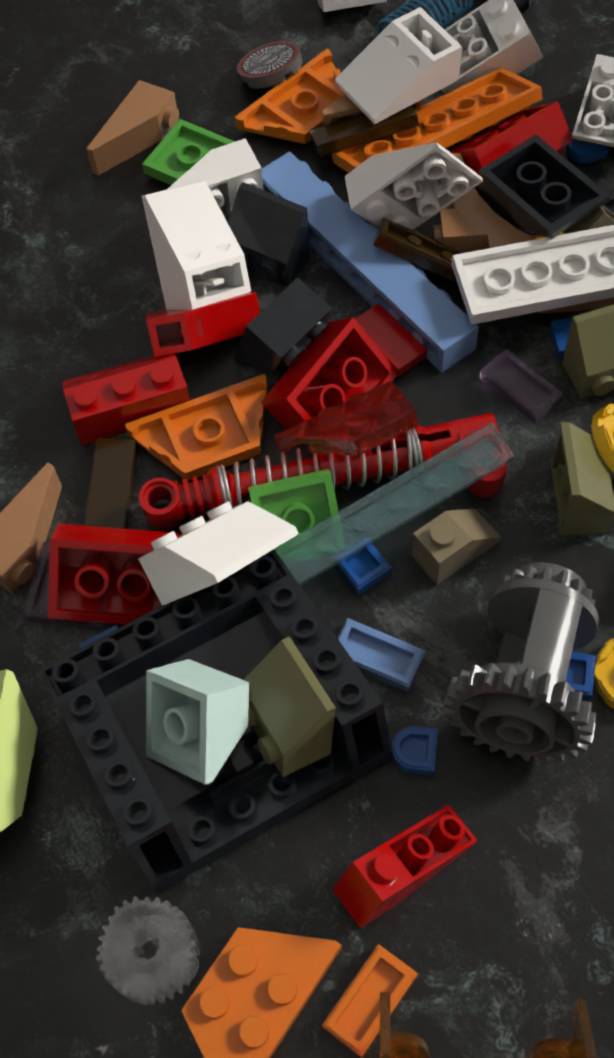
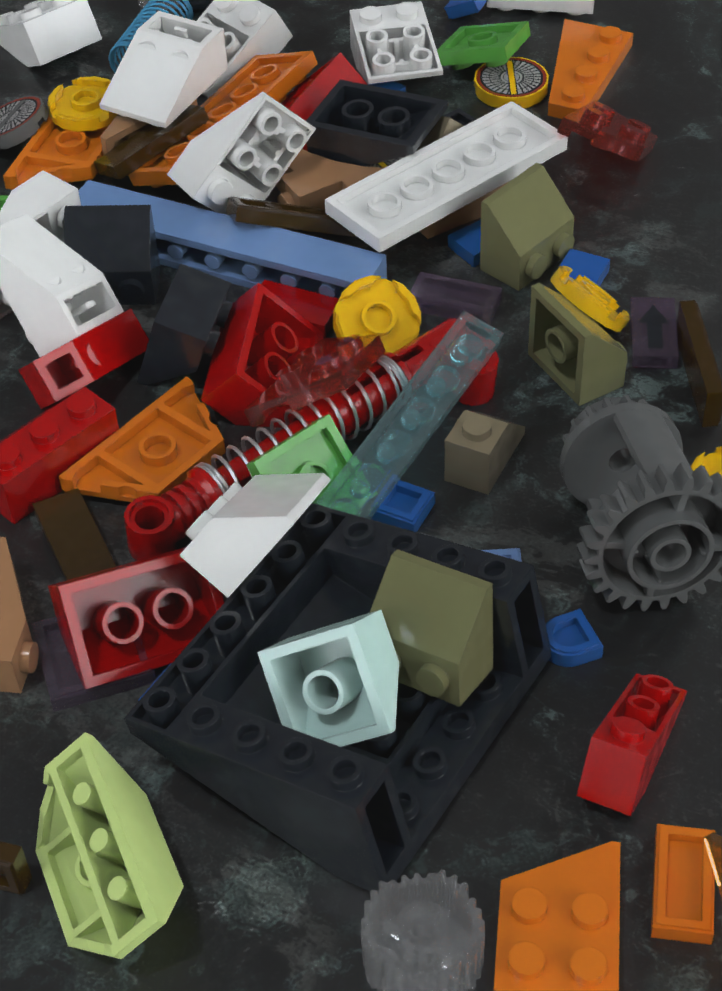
camera: 30 degrees left, 15 degrees down
(323, 64) = (78, 105): none -> yellow tile
(439, 384) = (379, 309): none -> yellow tile

